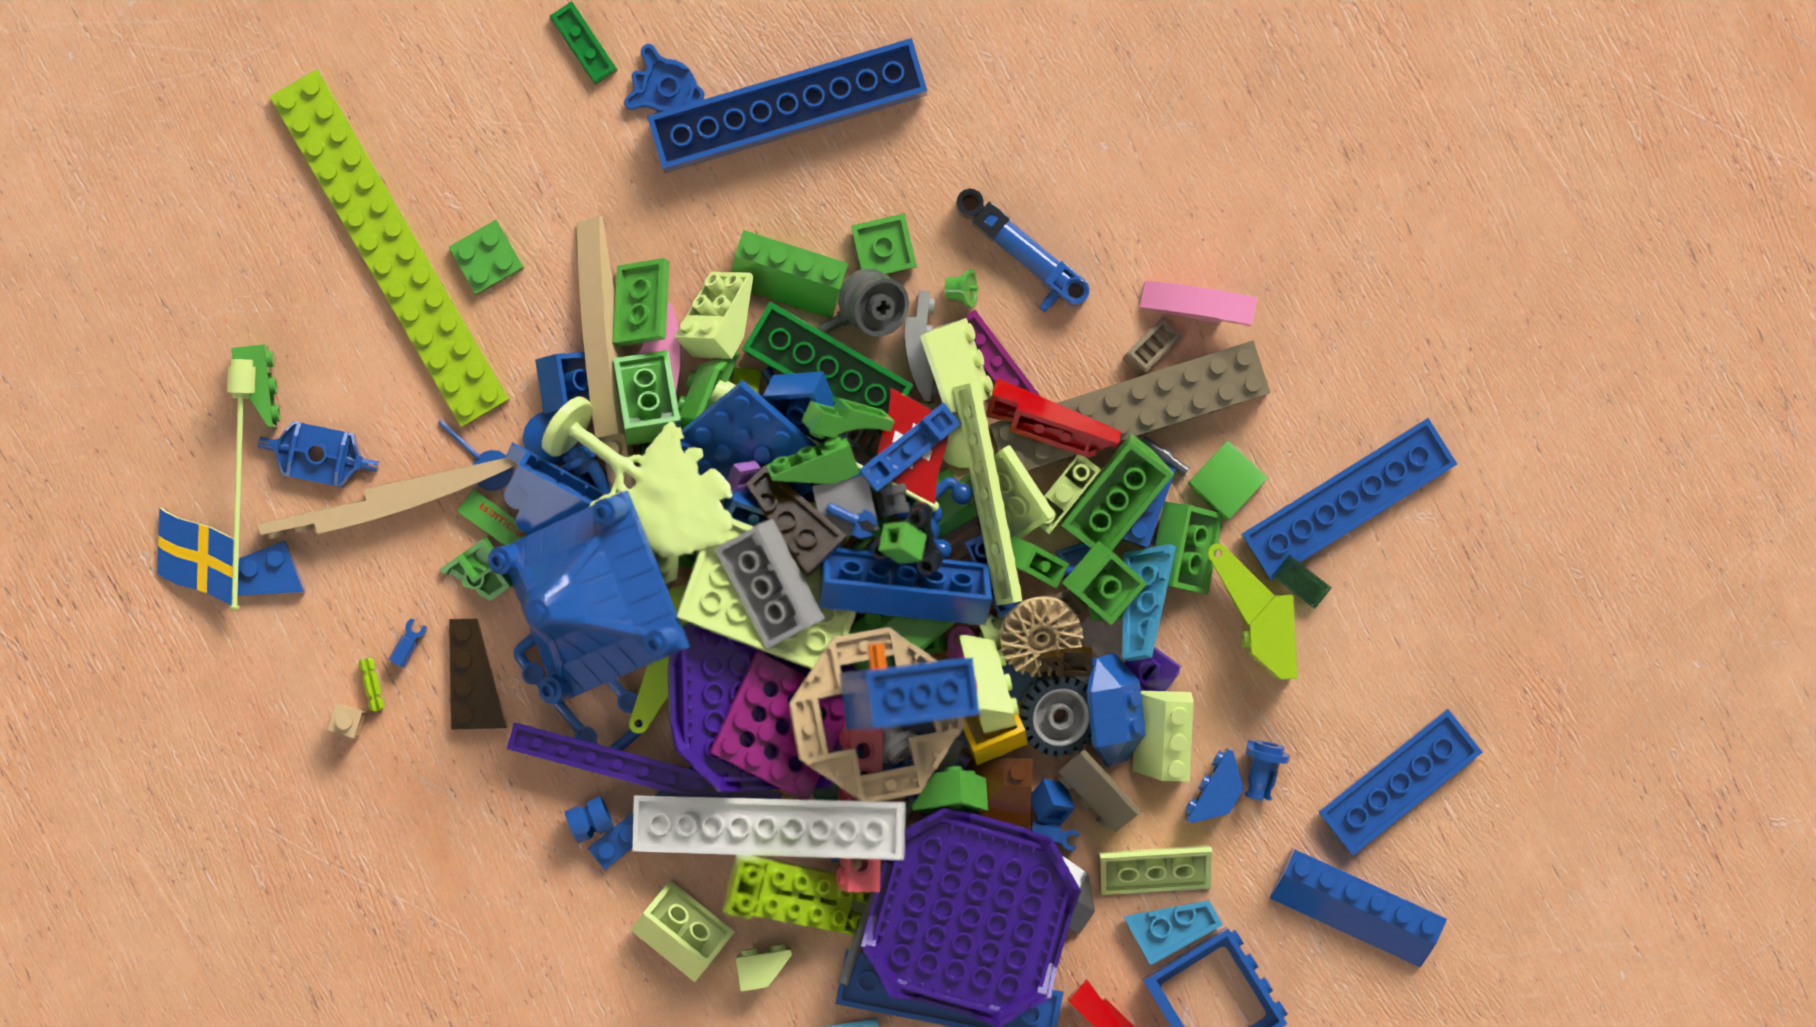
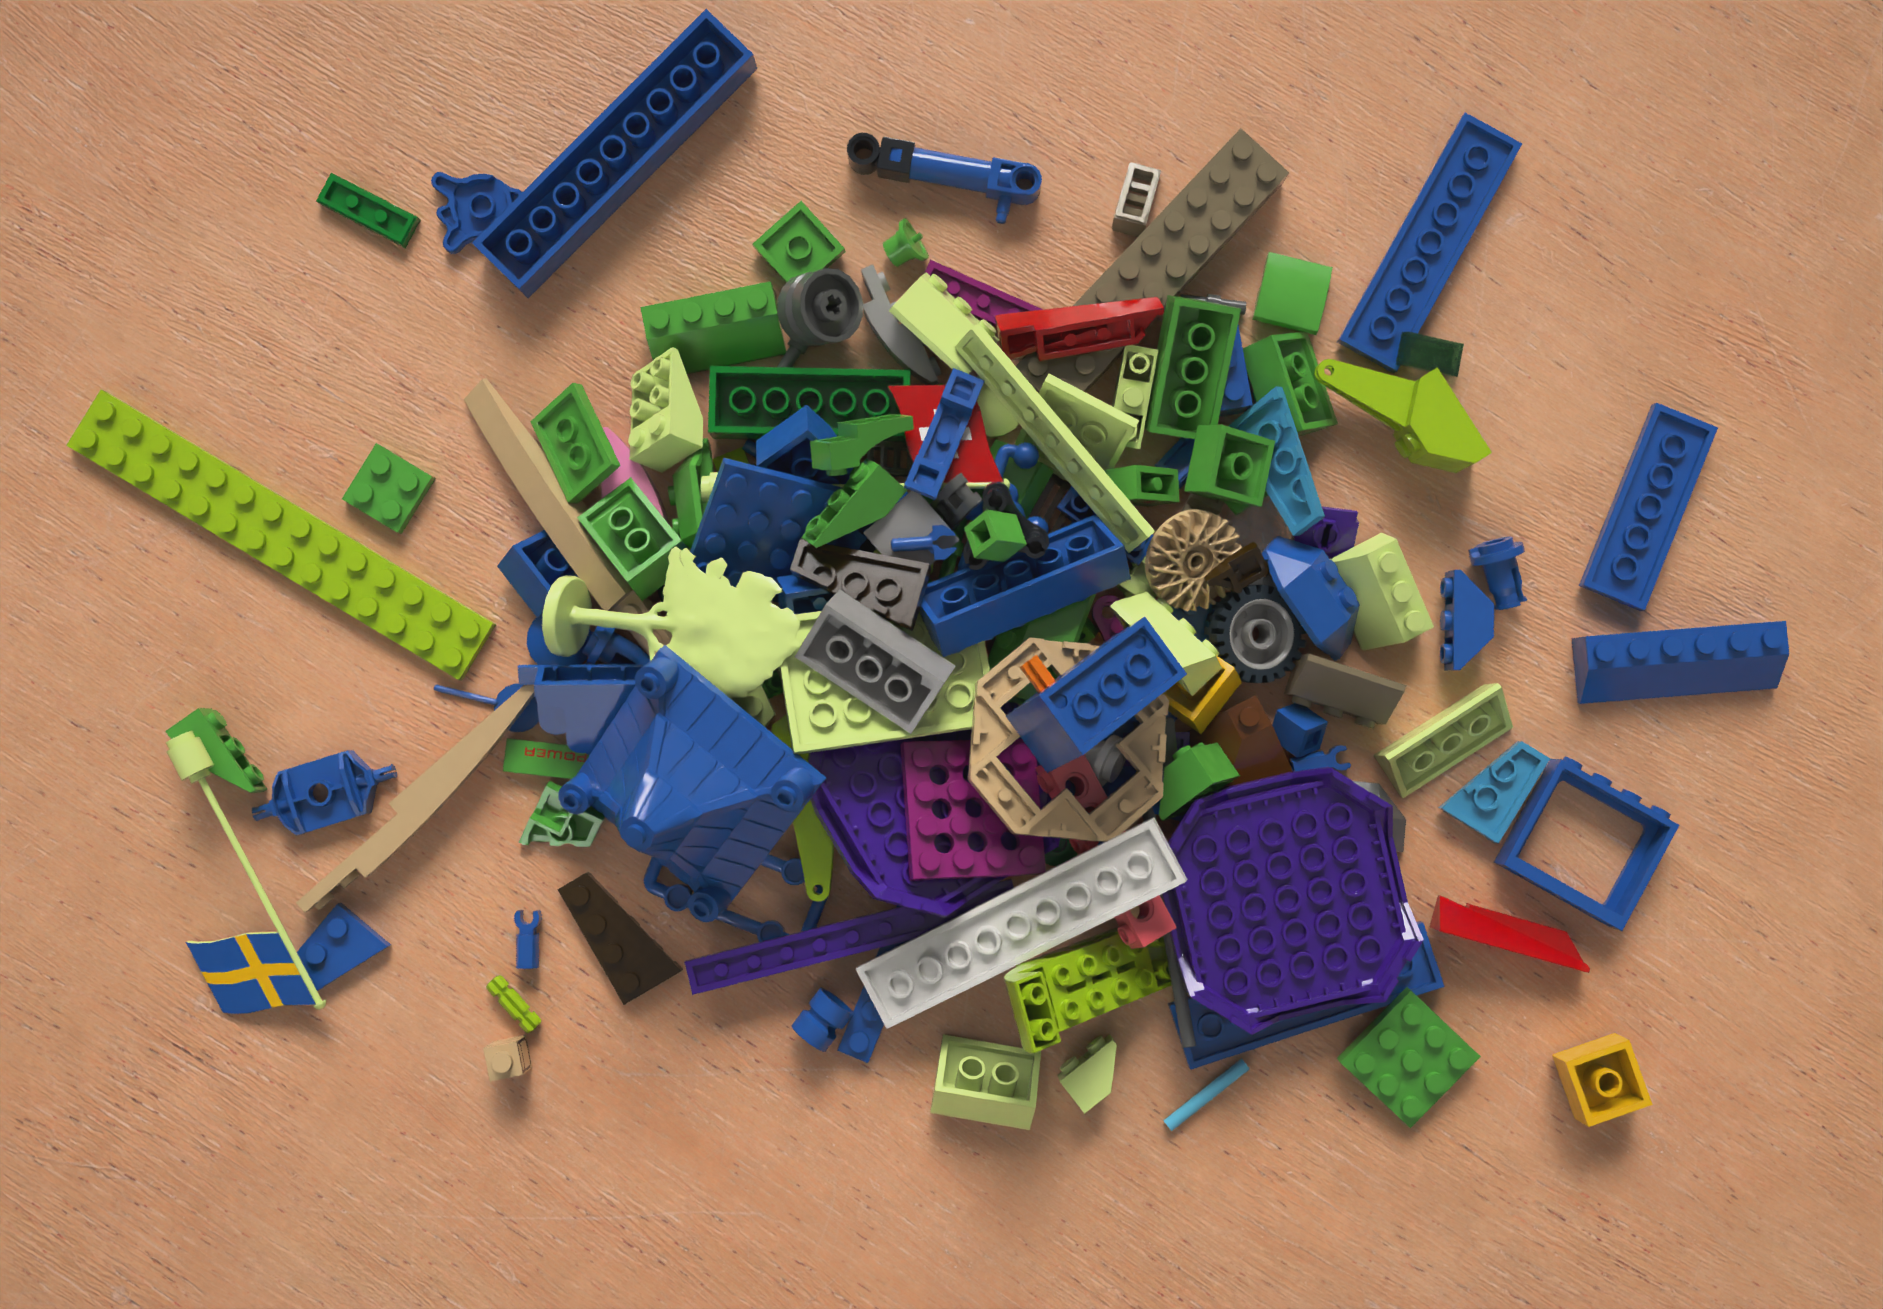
camera: 25 degrees left, 0 degrees up
(741, 474) = (779, 563): medium lavender plate -> none
(1198, 303) = (1162, 122): bright pink slope -> none

